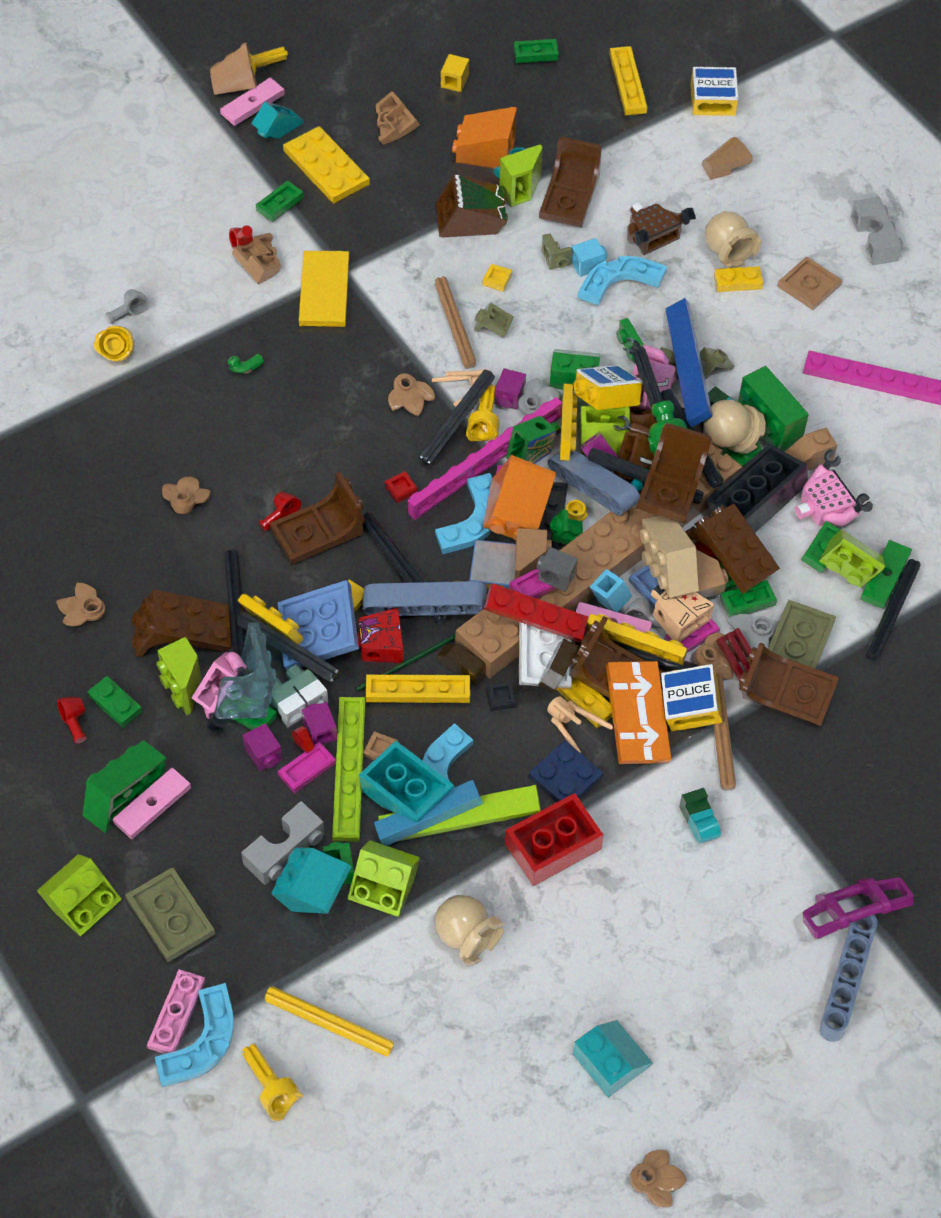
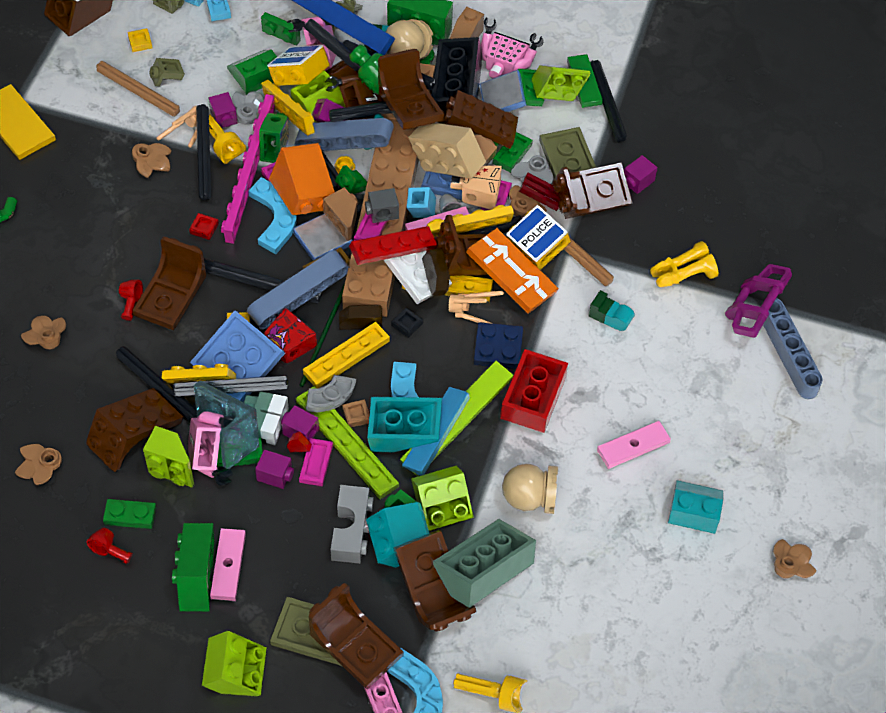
camera: 40 degrees left, 0 degrees up
(187, 940) = (352, 637): none -> reddish brown bracket
(299, 945) = (427, 592): none -> reddish brown bracket
(329, 1021) = (495, 620): yellow axle -> none
(359, 962) = (485, 562): none -> sand green slope
(370, 716) = (331, 395): none -> light grey tile
(588, 953) = (622, 448): none -> bright pink tile
(790, 536) = (504, 91): none -> flat silver tile
(793, 821) = (669, 274): none -> yellow piece
(854, 702) = (640, 174): none -> magenta brick

